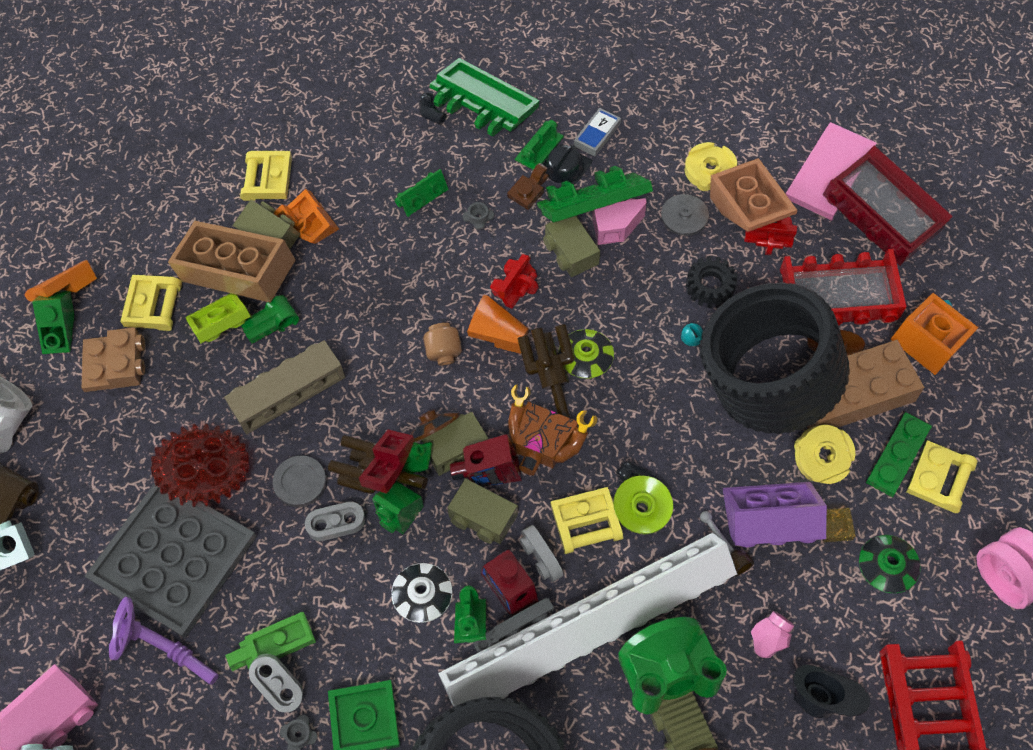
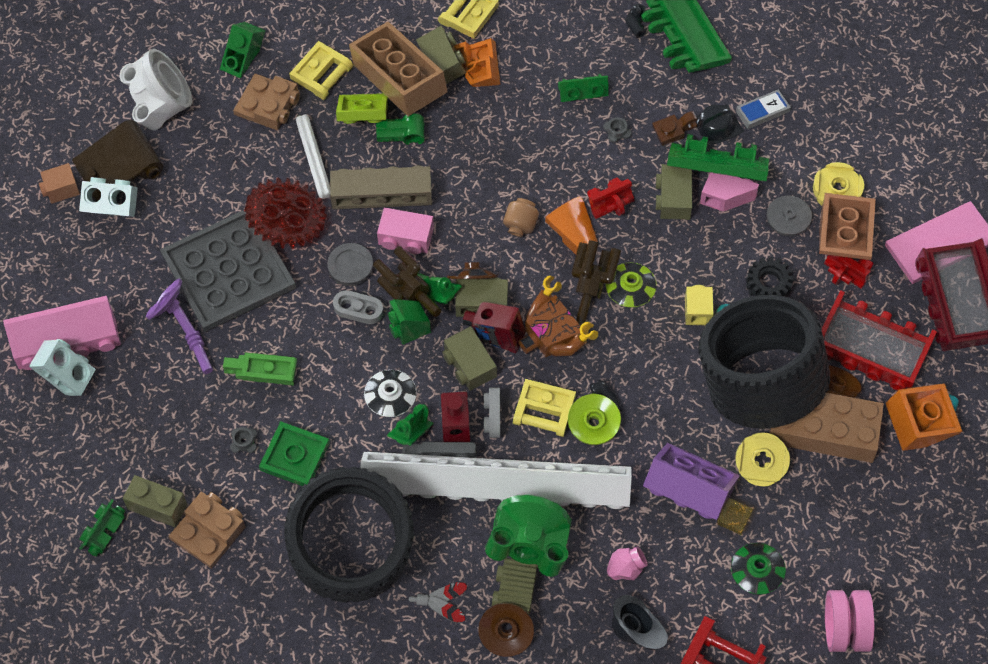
camera: 30 degrees right, 0 degrees up
(69, 280) = (270, 21): orange slope -> none
(195, 392) = (313, 156): none -> white axle
(272, 684) = (245, 396): light grey plate -> none
(336, 417) = (405, 229): none -> bright pink brick
(389, 460) = (422, 278): dark red slope -> none
(540, 145) = (709, 95): green hinge -> none
(665, 339) = (698, 305): none -> light yellow brick
(741, 559) = (639, 499): hinge -> none
(898, 454) = (826, 493): green plate -> none
(932, 472) = (843, 521): light yellow plate -> none

